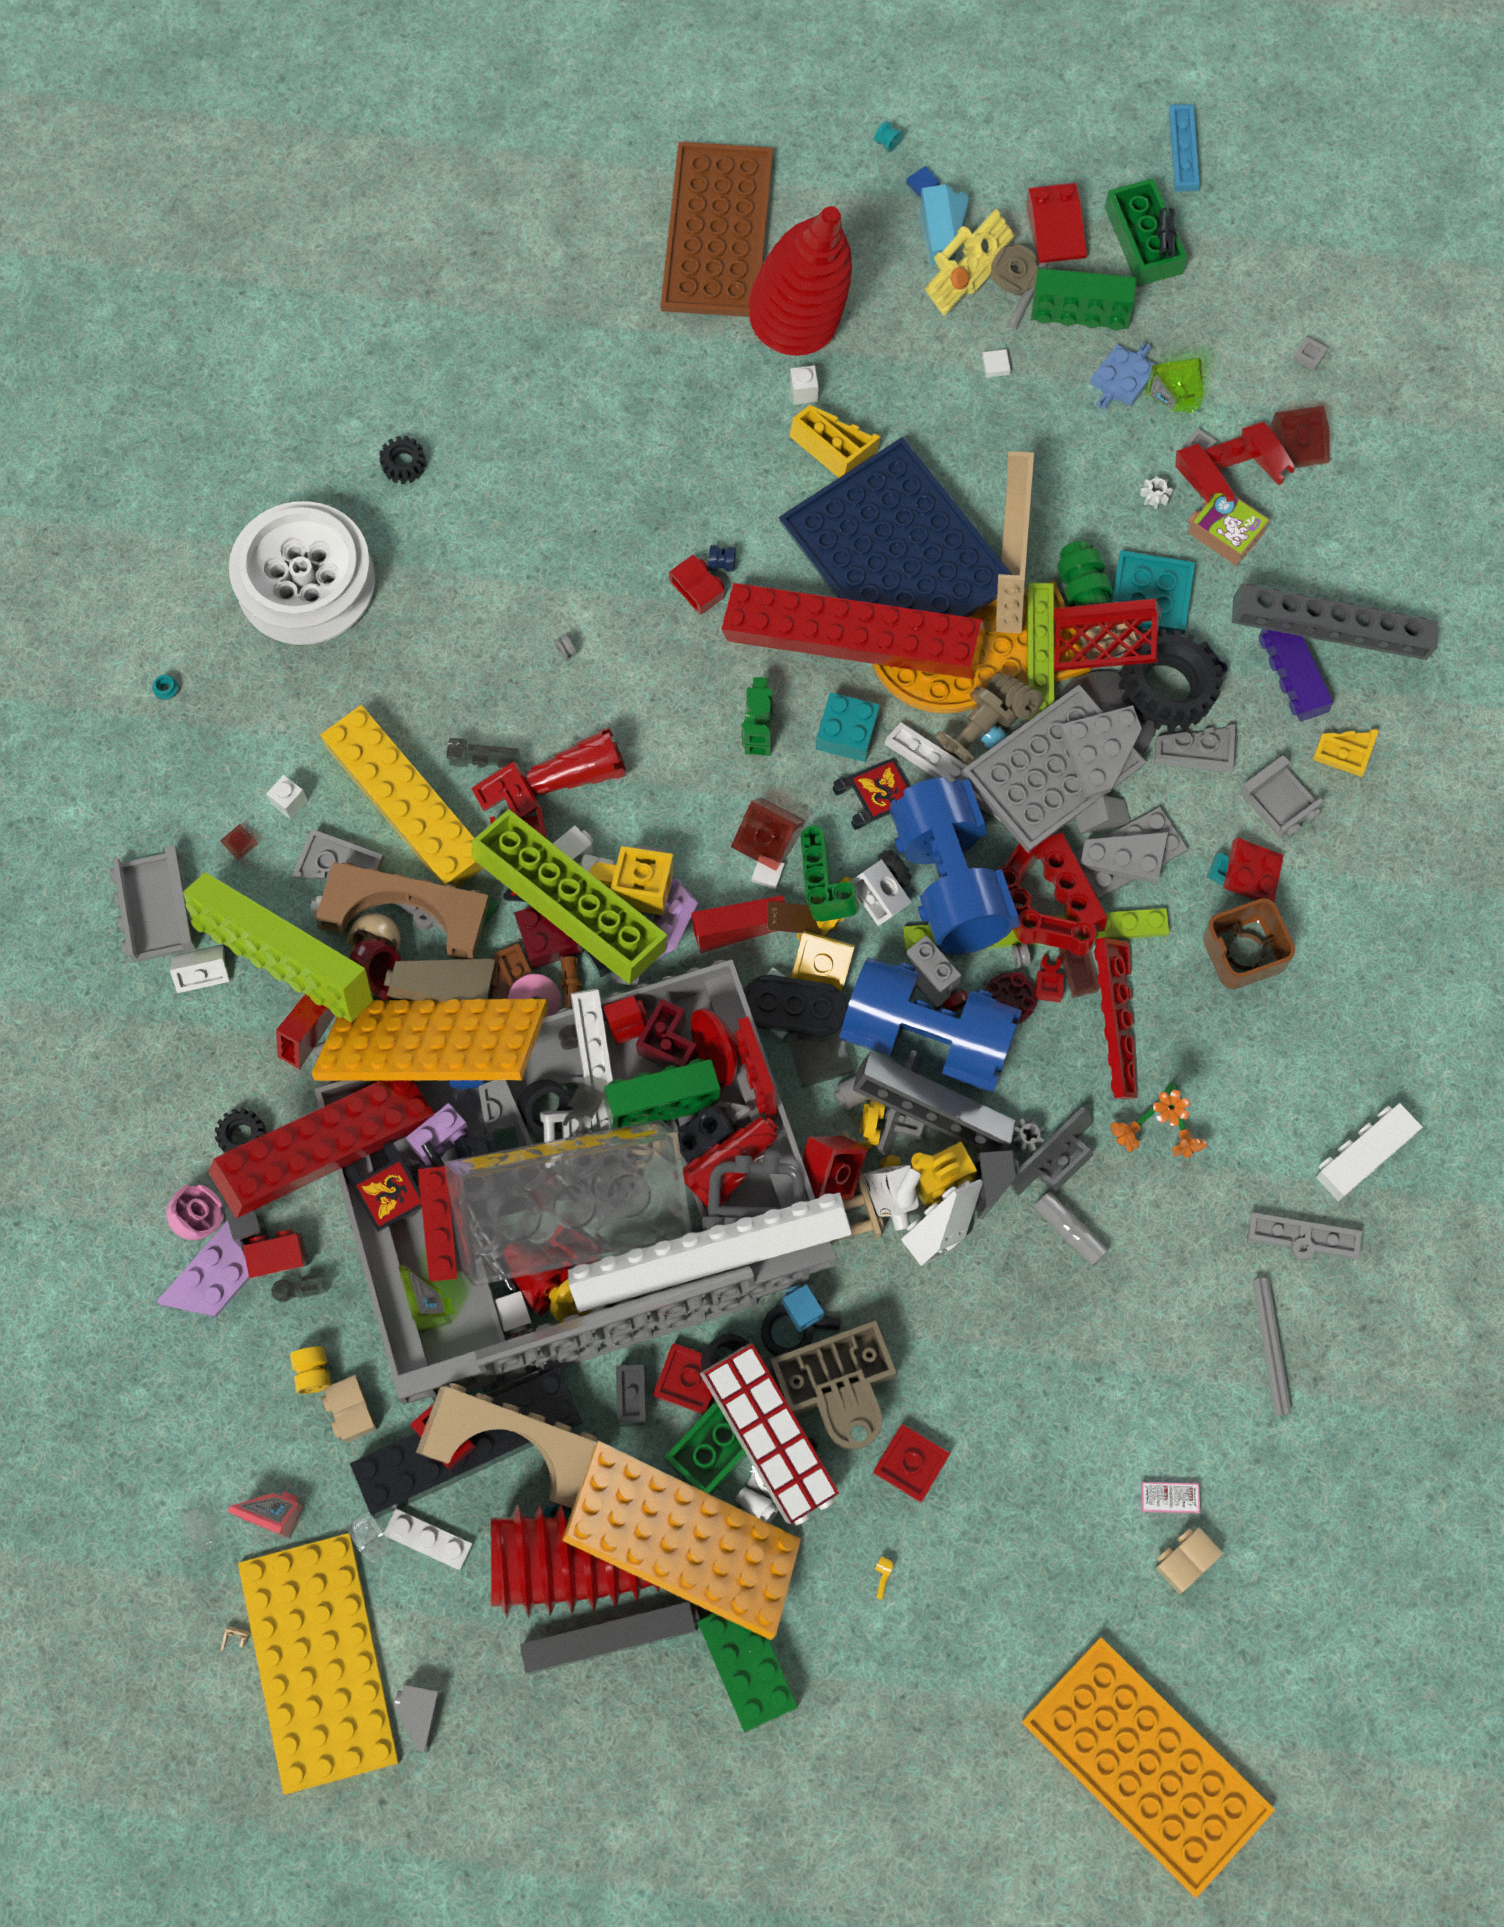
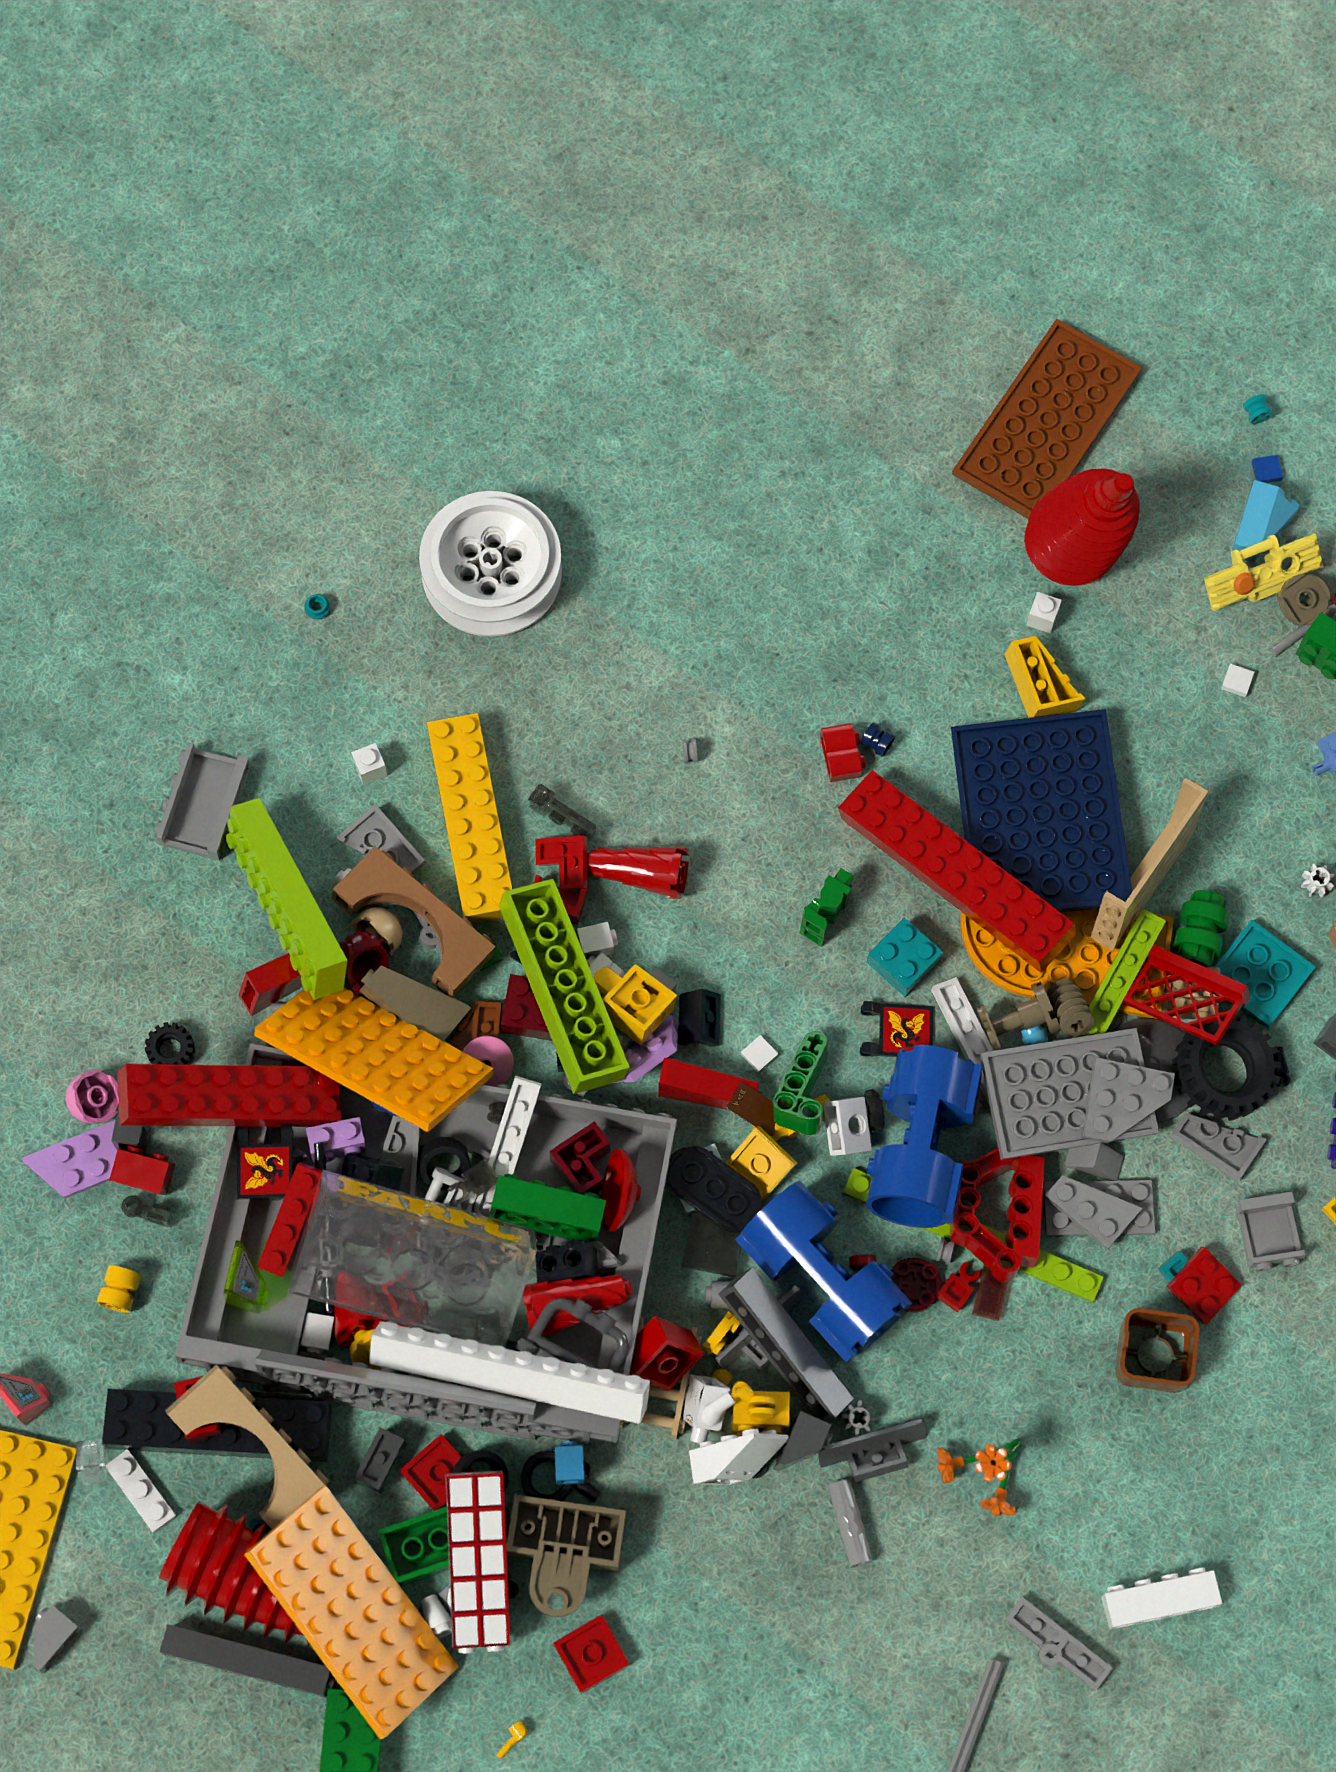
camera: 25 degrees right, 0 degrees up
(199, 969) = (212, 880): white panel -> none
(238, 842) = (306, 782): clear red plate -> none
(349, 1409) = (133, 1341): tan brick -> none
(399, 447) = (638, 486): black tyre -> none
(570, 979) = (528, 1062): dark orange pin -> none
(626, 1019) = (554, 1123): red brick -> none
(699, 868) = (699, 1018): none -> black panel
(757, 1073) = (638, 1230): red plate -> none
(767, 833) = (778, 1017): clear red slope -> none
(937, 975) = (853, 1224): light grey panel -> none
(1113, 968) = (1021, 1306): red wing -> none

